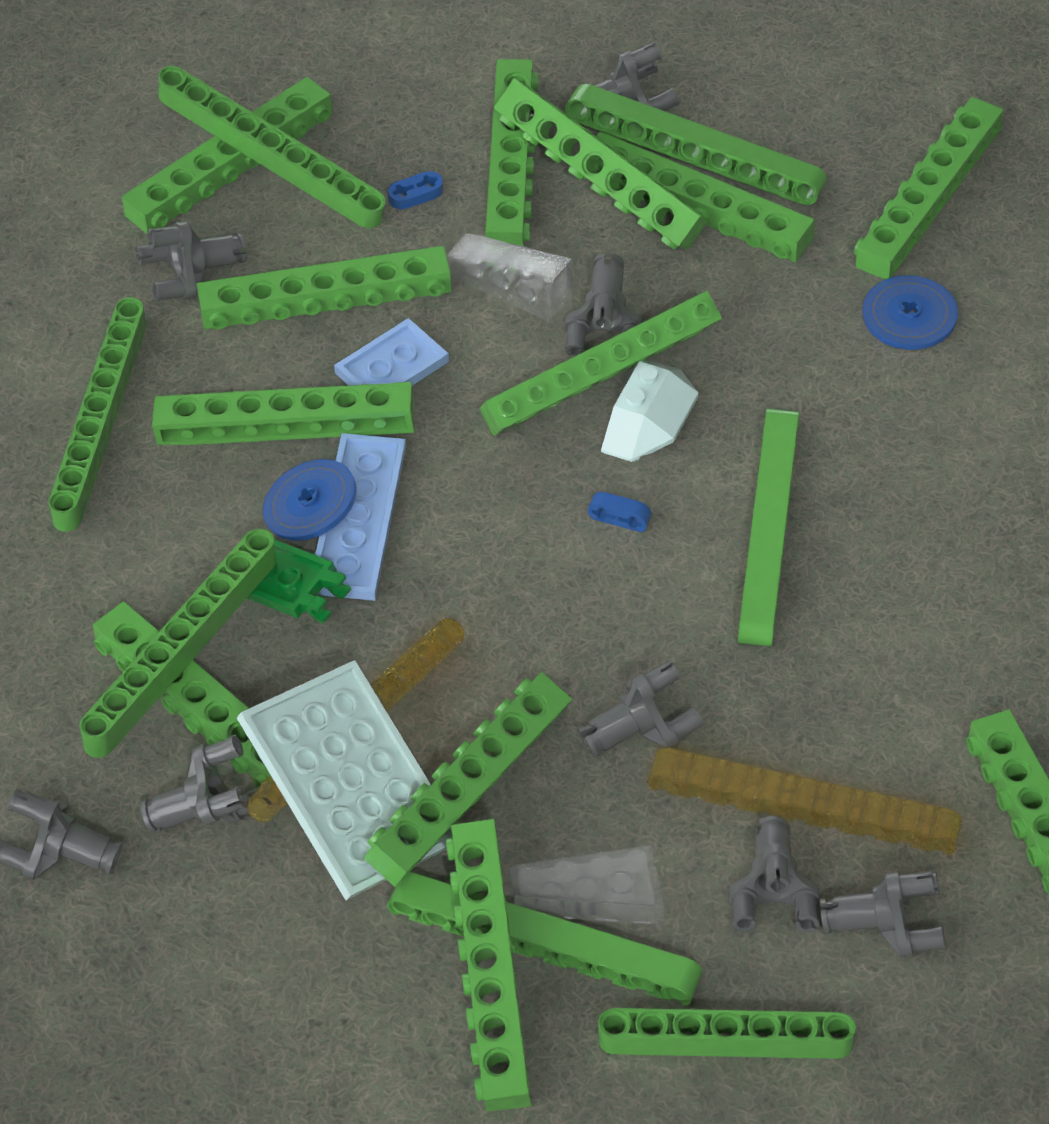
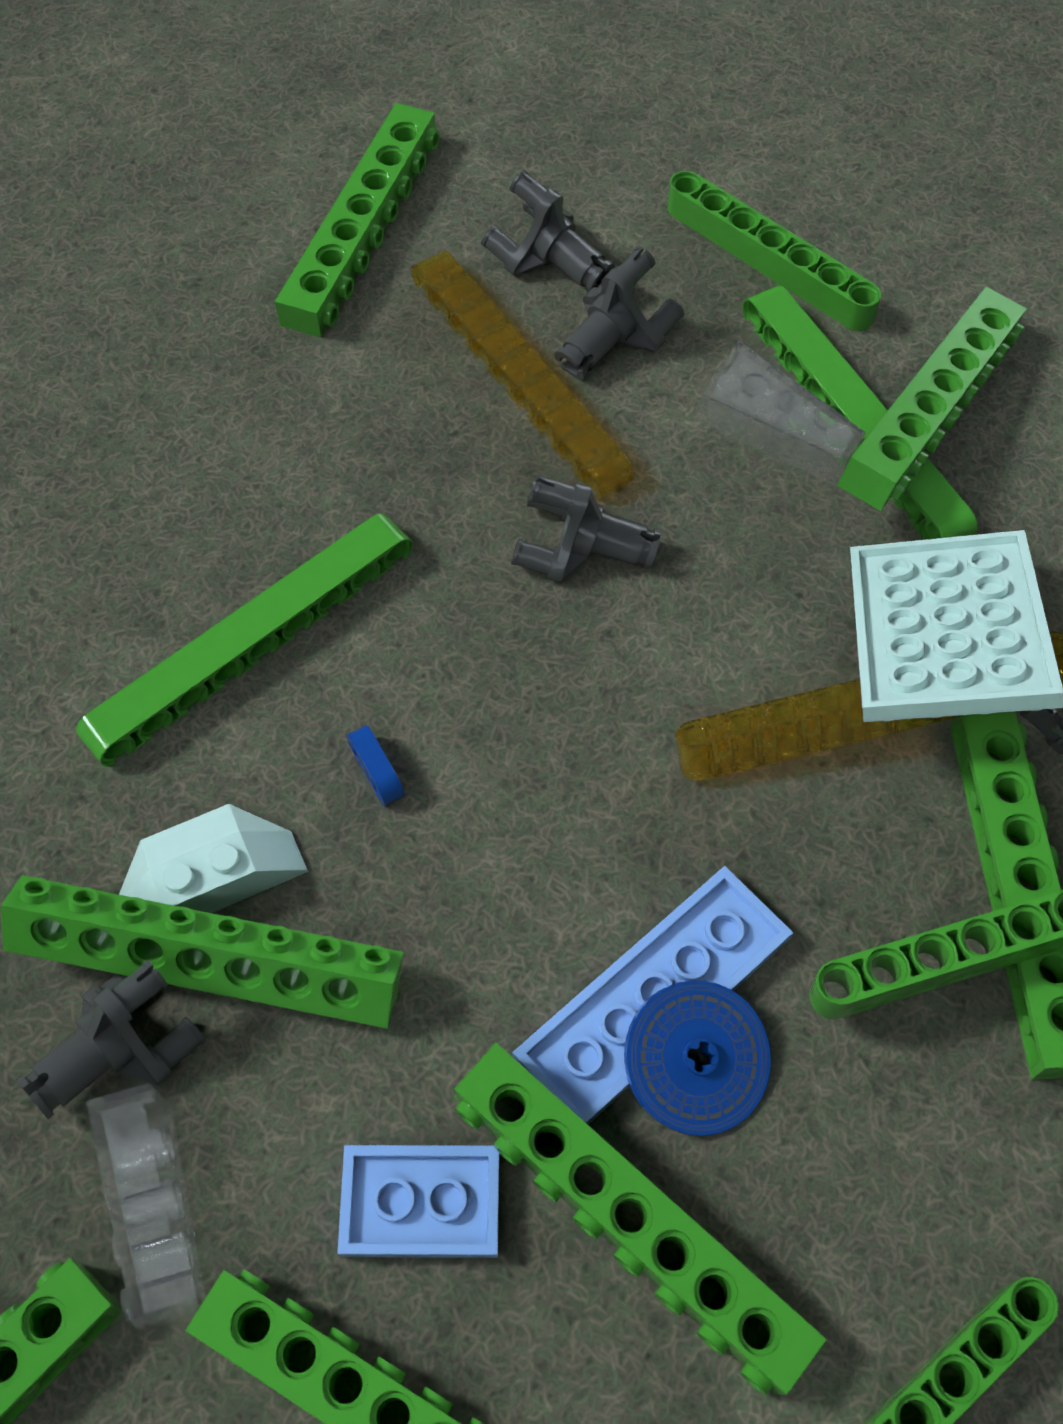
camera: 140 degrees left, 10 degrees up
(297, 581) = (794, 948): green tile -> none
(395, 858) = (813, 564): bright green brick -> none

